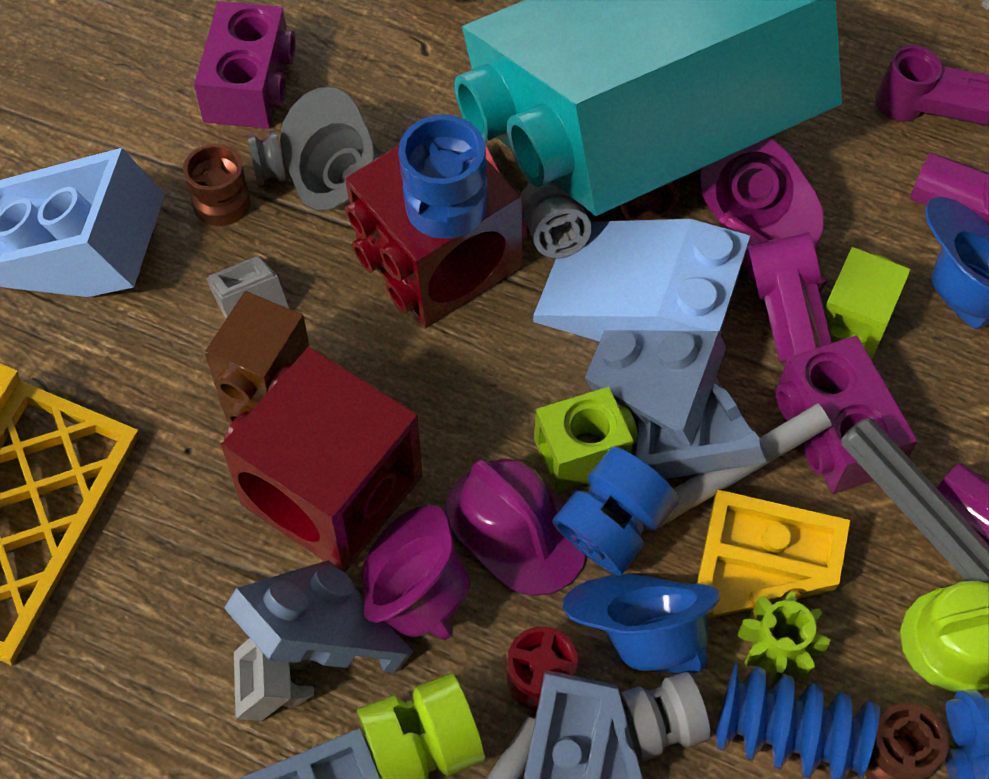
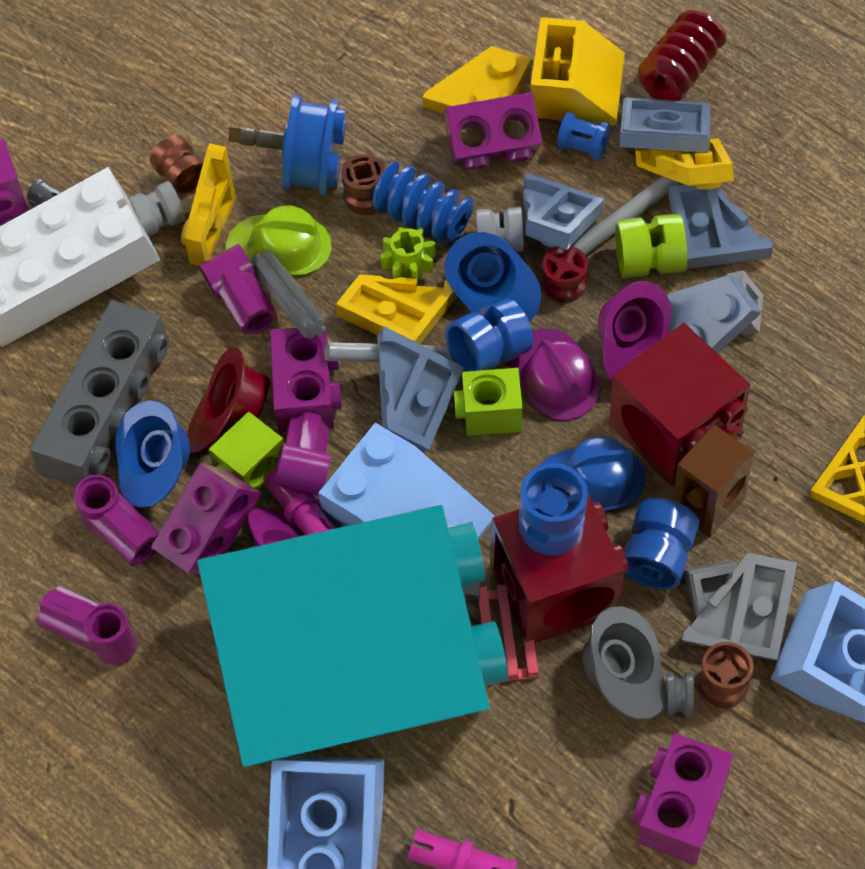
camera: 160 degrees left, 0 degrees up
(201, 253) = (748, 608): none -> light grey wing
(325, 287) = (659, 543): none -> blue wheel
(440, 381) = (608, 468): none -> blue piece
(659, 375) = (428, 417): sand blue wing -> none
(868, 189) = (205, 517): none -> magenta brick
(920, 355) = (229, 396): none -> dark red piece

